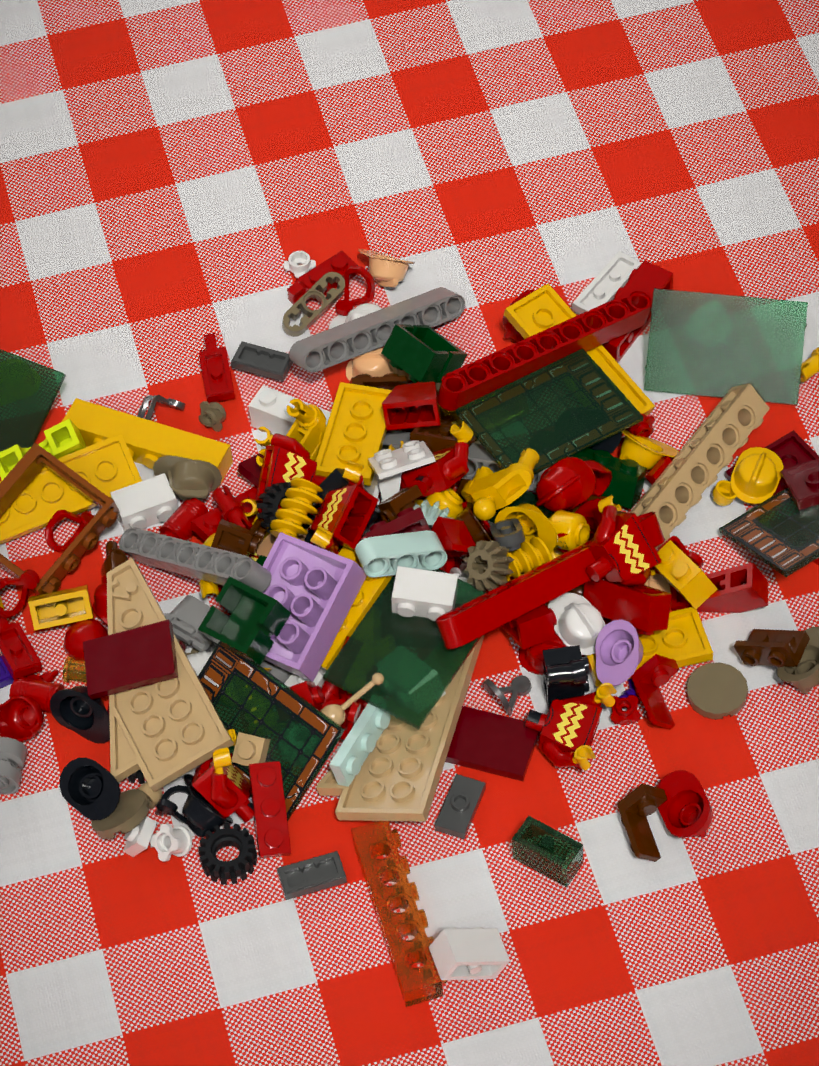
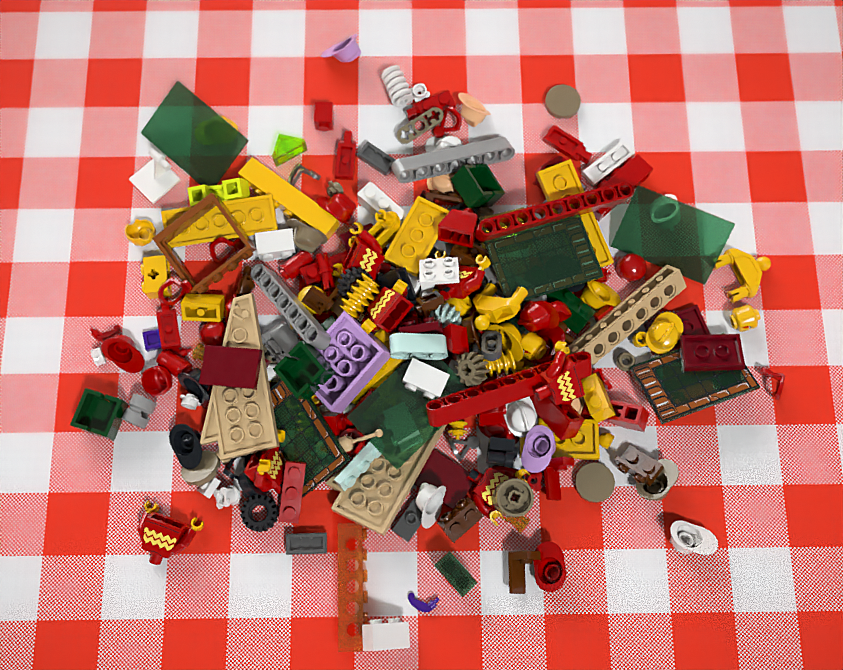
camera: 10 degrees right, 20 degrees up
(77, 736) = (190, 401): none -> white plate
(92, 914) = (164, 535): none -> red torso
(125, 378) = (287, 148): none -> clear neon green slope
(166, 325) = (324, 116): none -> red brick
(173, 237) = (344, 51): none -> lavender piece
(229, 428) = (339, 206): none -> red piece
(250, 749) = (290, 448): tan plate -> none
(264, 262) = (397, 86): none -> white piece
(480, 768) = (430, 503): none -> white piece
(491, 668) = (458, 428): none -> yellow wheel
(511, 914) = (421, 606): none -> dark purple piece
(515, 226) = (562, 101): none -> dark tan tile
(533, 784) = (460, 519): none -> reddish brown bracket
(534, 275) = (567, 144): none -> red hinge
(600, 722) = (522, 502): none -> dark tan wheel
(618, 763) = (520, 526): none -> clear yellow bush
(682, 407) = (631, 267): none -> red hair
(711, 520) = (629, 357): none -> dark tan plate
(716, 631) = (605, 440): none -> yellow hinge

